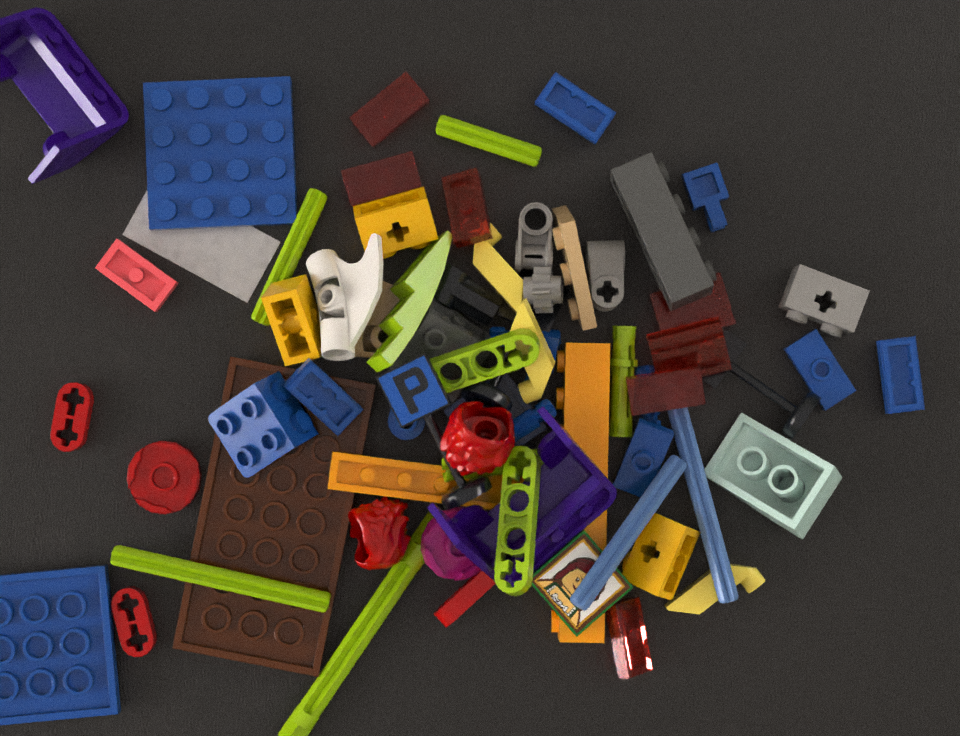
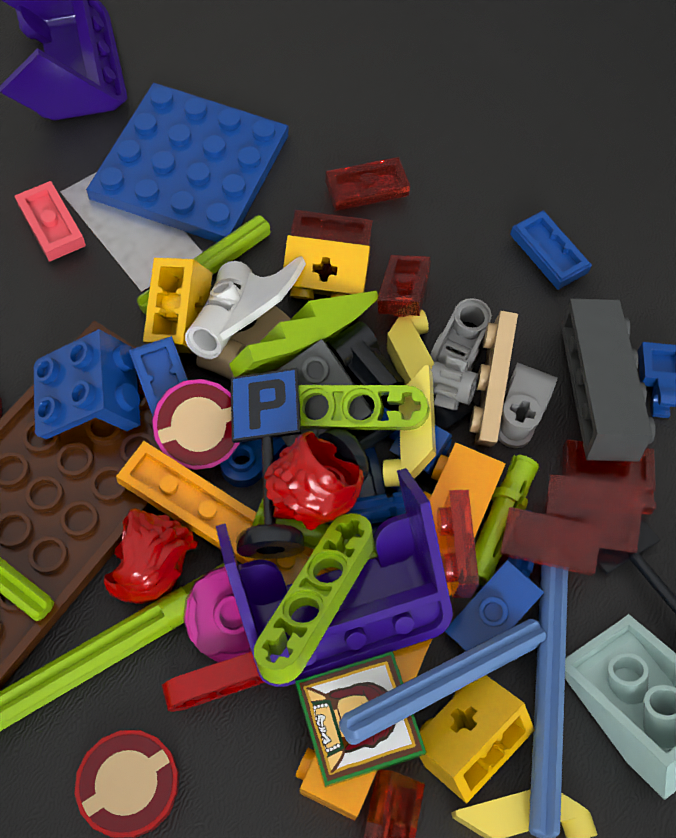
camera: 25 degrees right, 25 degrees down
(362, 419) = (195, 424): none -> tile
(441, 683) = (126, 784): none -> tile
(488, 140) = (452, 245): lime axle -> none
(606, 447) = (460, 562): none -> clear red plate

